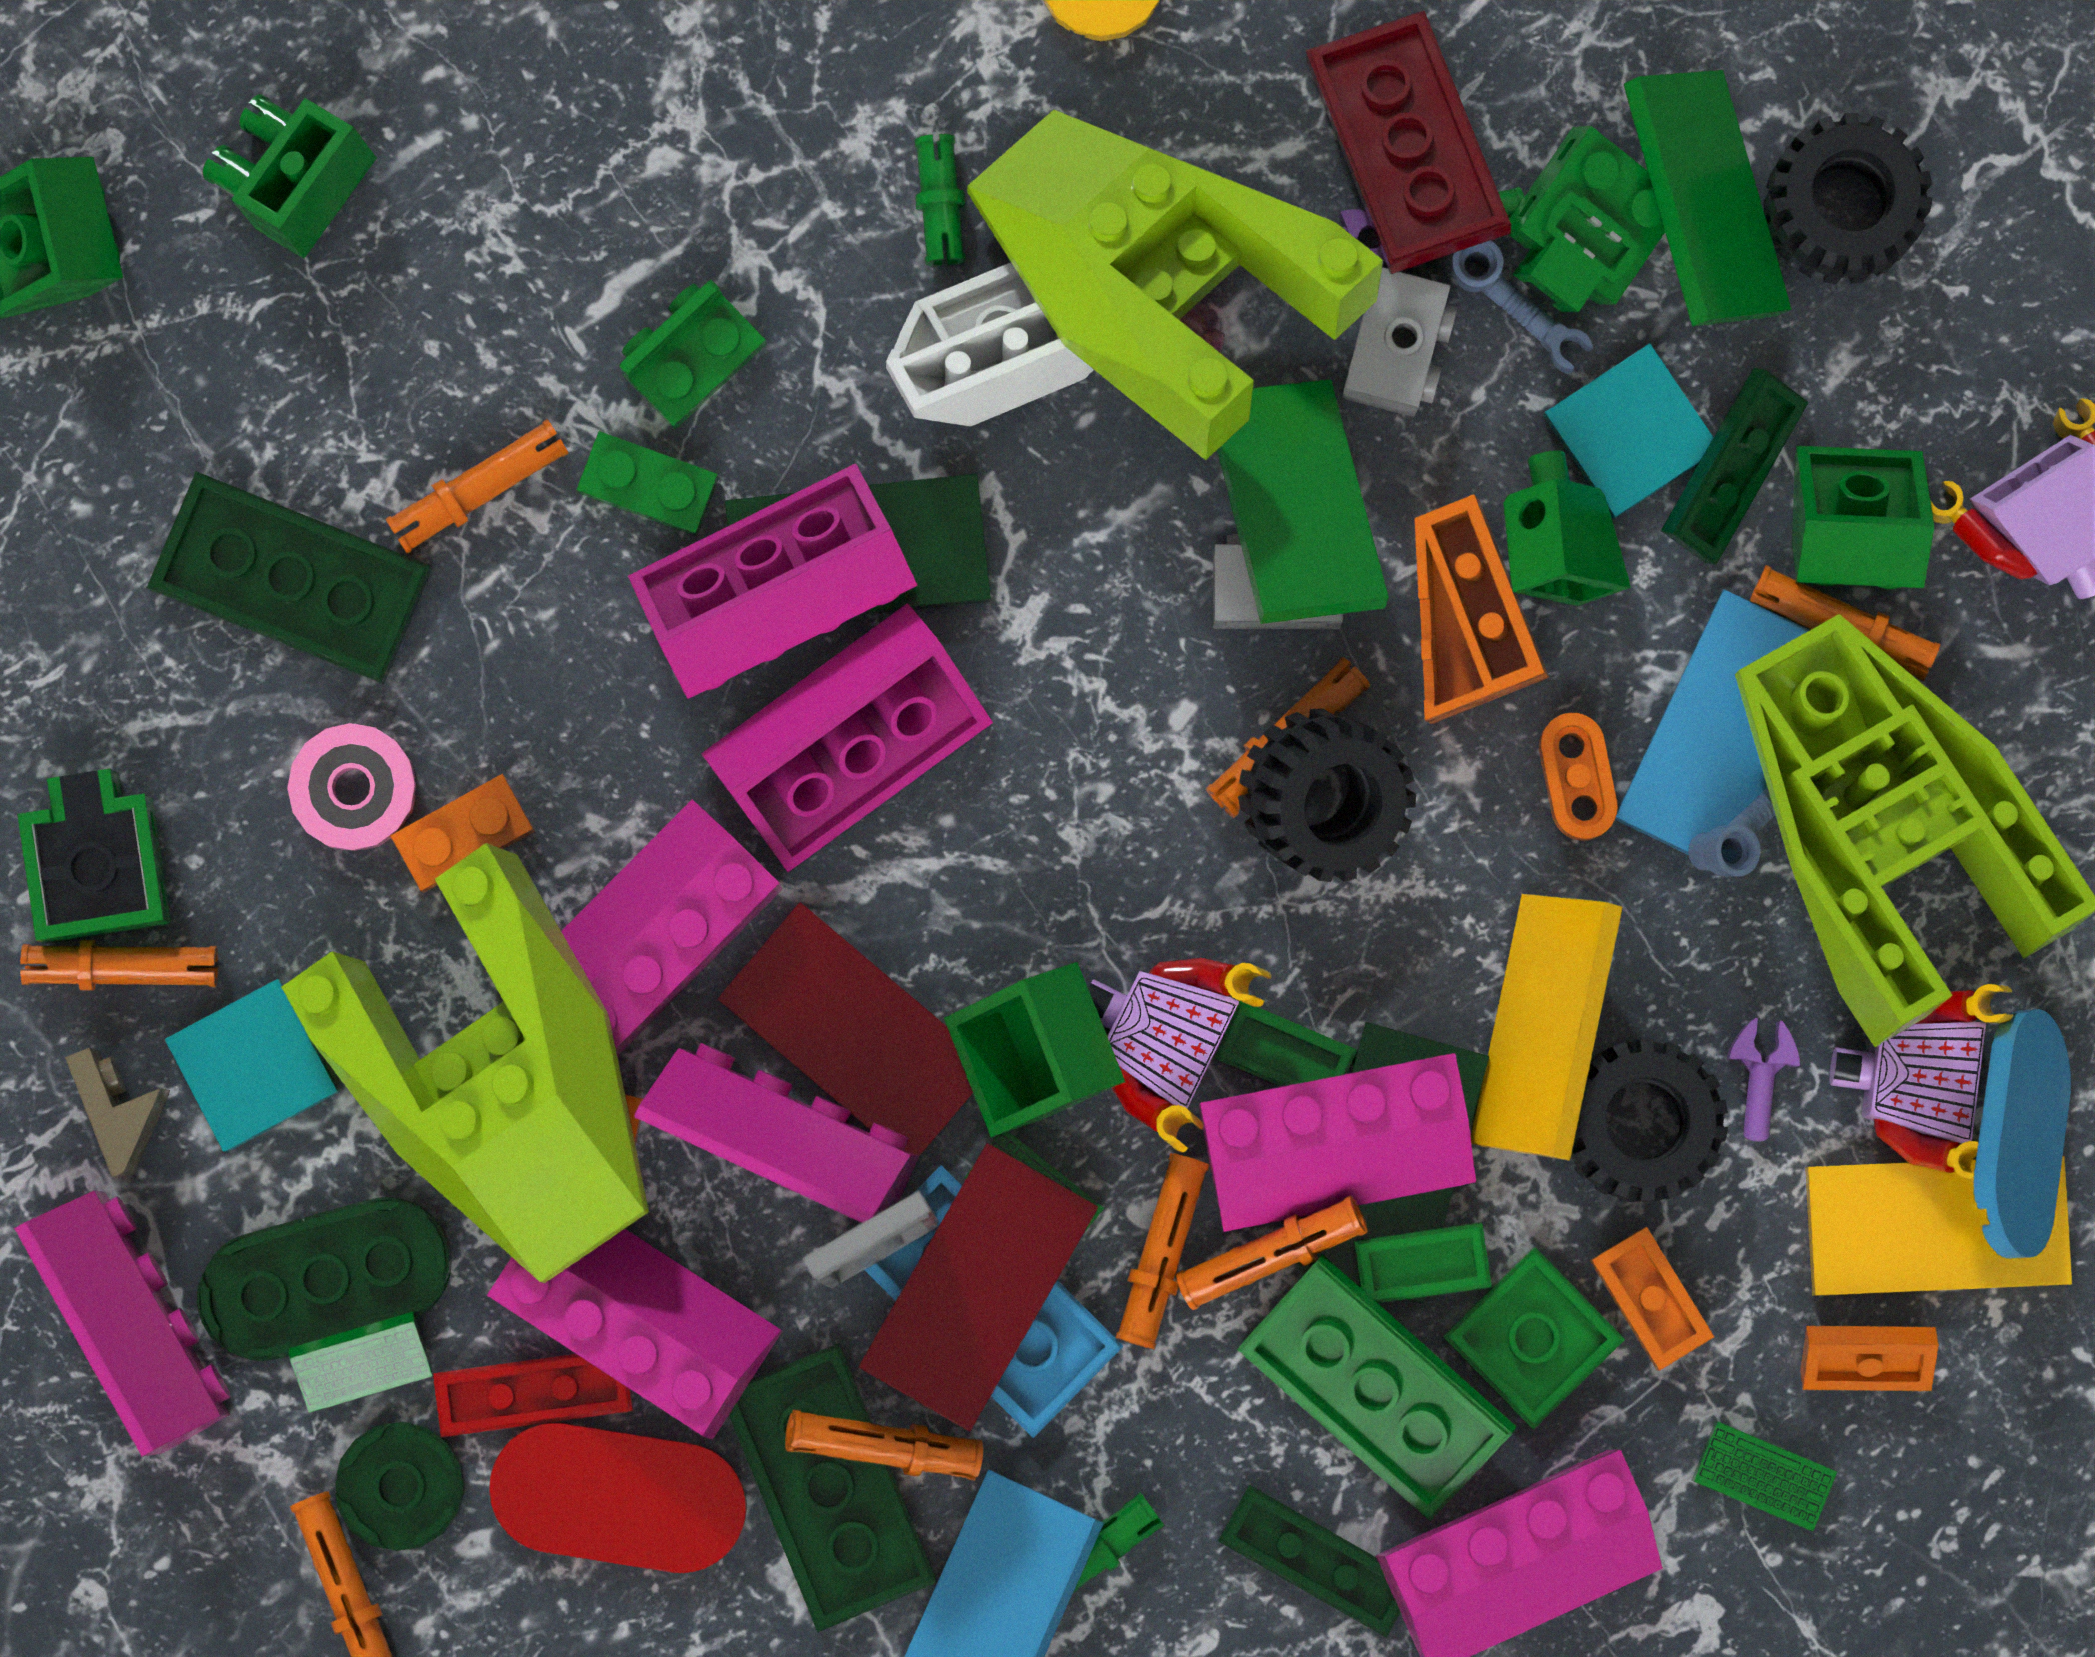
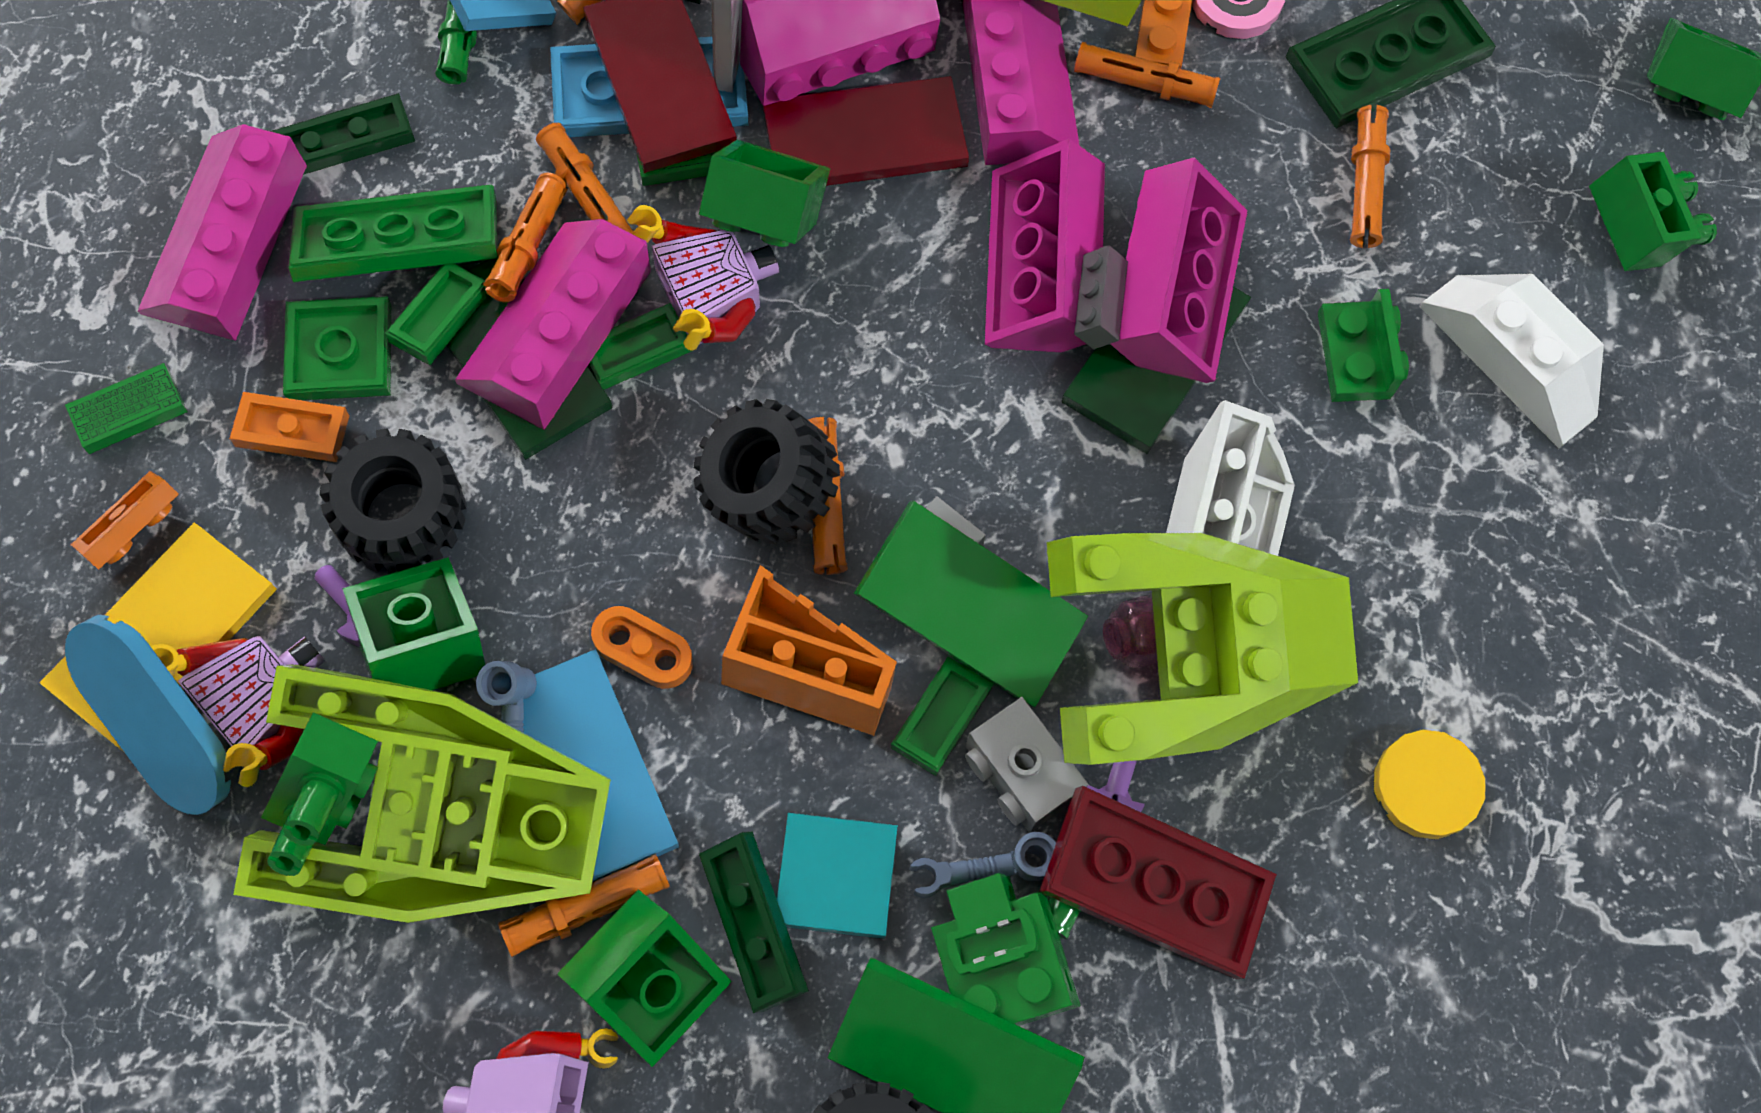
camera: 125 degrees right, 15 degrees down
(542, 800) = (1147, 74): none -> orange pin
(550, 199) = (1525, 346): none -> white wedge
(647, 483) = (1295, 269): green plate -> none
(876, 627) = (1101, 297): none -> dark grey piece
(940, 200) = (1350, 562): green pin -> none
(1412, 457) = (941, 716): none -> green tile
(1546, 1025) = (504, 488): yellow tile -> none
(1562, 537) = (804, 754): green torso -> none
(1742, 987) = (416, 627): none -> green slope
(1965, 911) = (318, 790): none -> green brick

